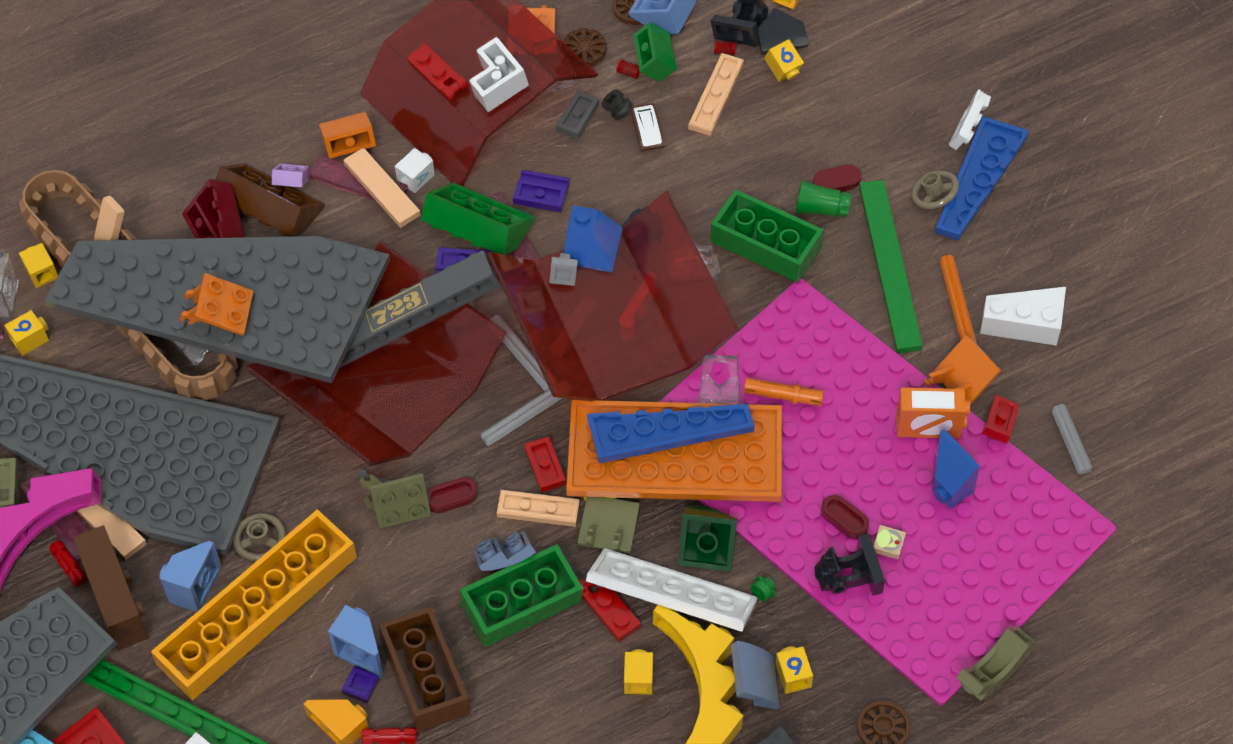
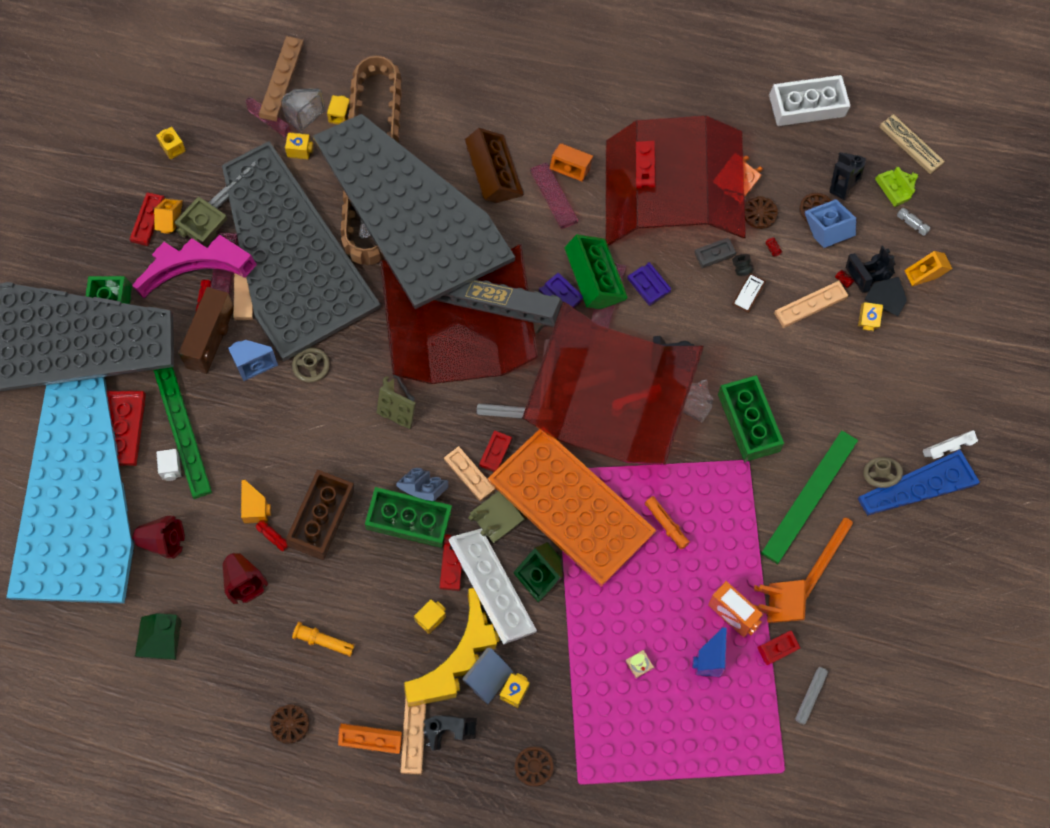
camera: 40 degrees right, 10 degrees up
(109, 220) = (388, 115): light nougat tile -> none
(214, 212) = (452, 156): dark red wedge -> none
(219, 304) = (393, 214): orange plate -> none
(254, 604) = (269, 402): light orange brick -> none
(290, 175) = (517, 162): lavender piece -> none
(355, 641) = (301, 468): medium blue slope -> none
(360, 684) = (285, 493): dark purple tile -> none
(382, 187) = (560, 210): light nougat tile -> none
(415, 170) = (590, 213): white brick -> none
(452, 495) = (430, 426): dark red tile -> none
(501, 76) = (672, 198): white brick -> none
(563, 270) = (605, 344): light grey tile -> none
(592, 239) = (639, 340): blue slope -> none
(644, 433) = (561, 481): blue wing -> none
(654, 52) = (796, 249): green brick -> none
(727, 392) = (630, 494): clear piece -> none
(763, 588) = (544, 628): green plate -> none
(822, 200) = (806, 423): green plant -> none
(839, 178) = (830, 416): dark red tile -> none
(844, 517) = (629, 627): dark red tile -> none
(864, 566) = (584, 653): black tile -> none
(997, 664) = (627, 790): olive arch -> none
(1025, 315) = (858, 597): white wedge -> none

